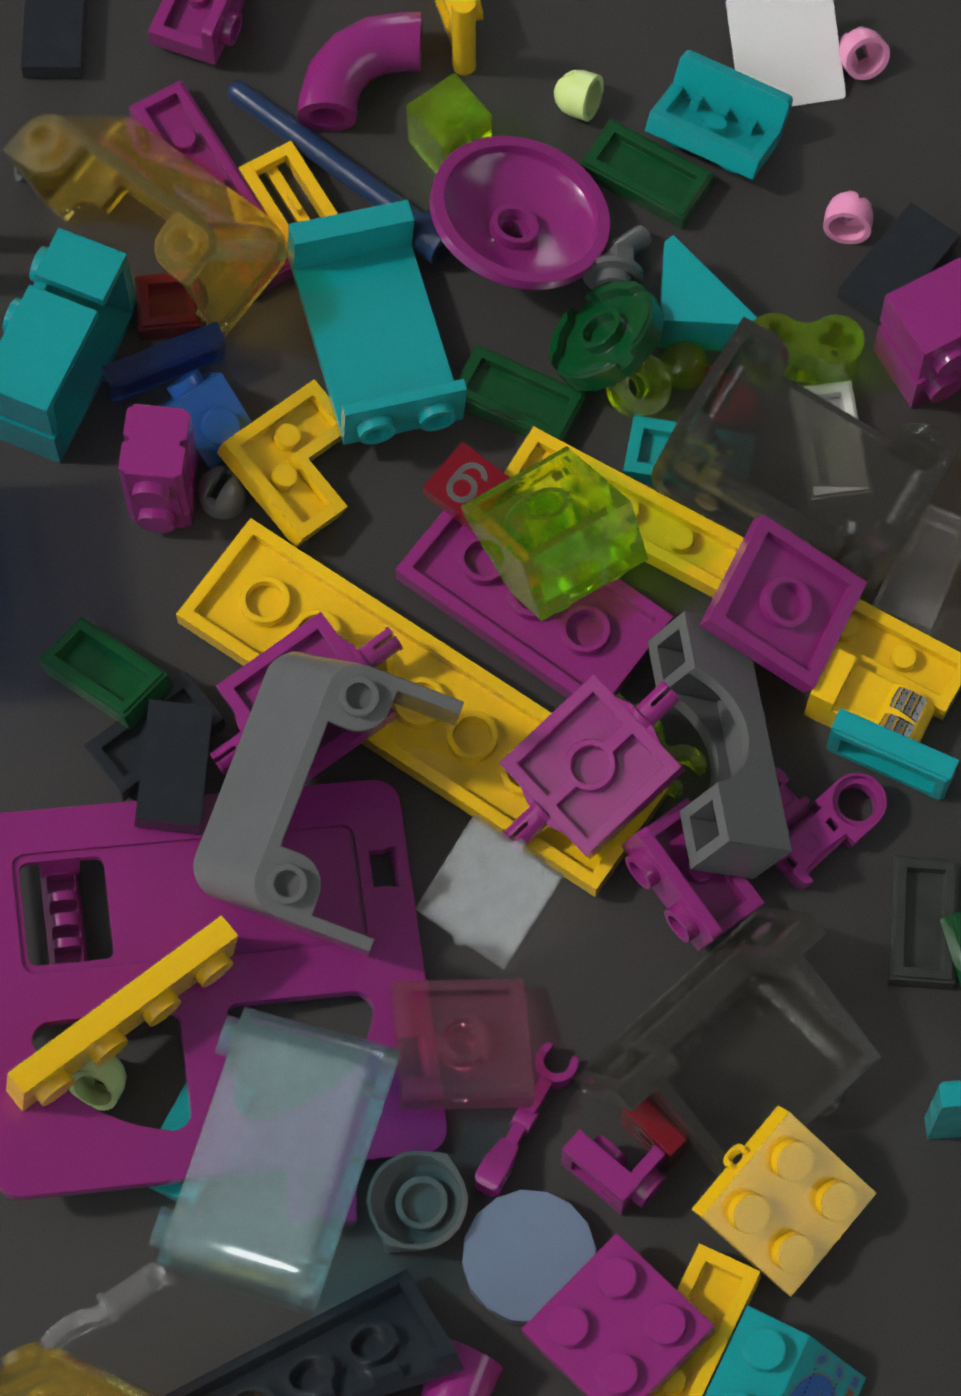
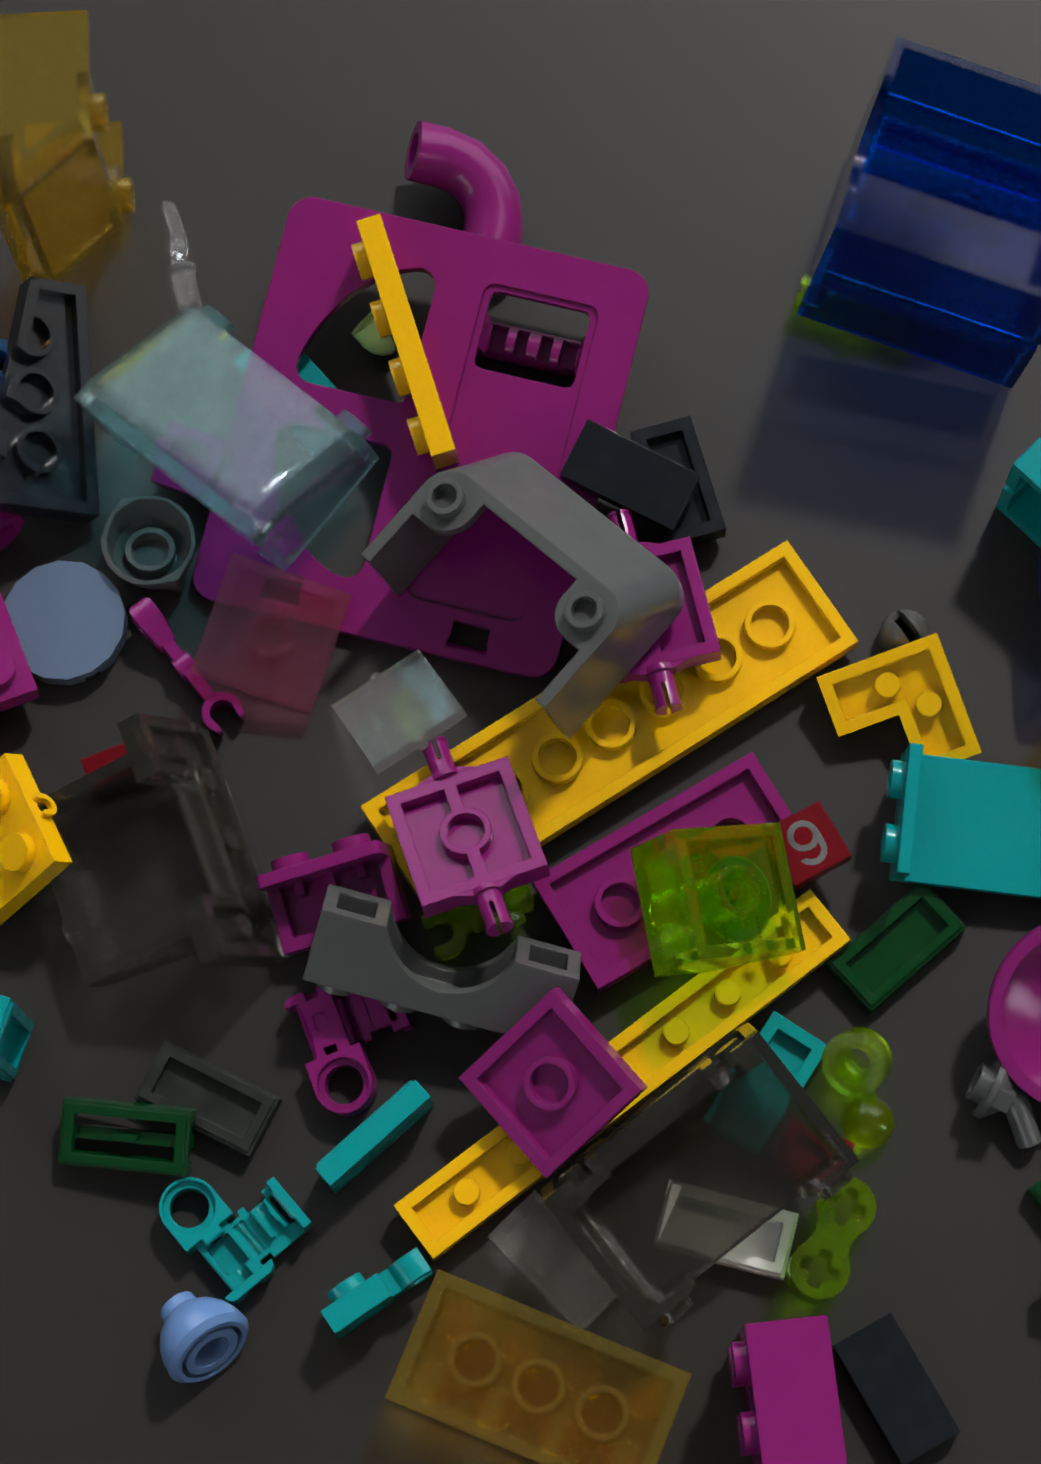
camera: 115 degrees right, 5 degrees up
(105, 672) = (754, 460): dark green tile -> none
(159, 467) = (932, 566): magenta brick -> none
(213, 411) = (988, 643): blue bracket -> none
(602, 1170) = (99, 711): magenta bracket -> none
(606, 336) = (918, 1047): dark green tile -> none
(696, 301) = (928, 1151): teal slope -> none
(857, 219) = (969, 1361): bright pink hinge -> none
(868, 696) = (432, 1138): yellow leg -> none

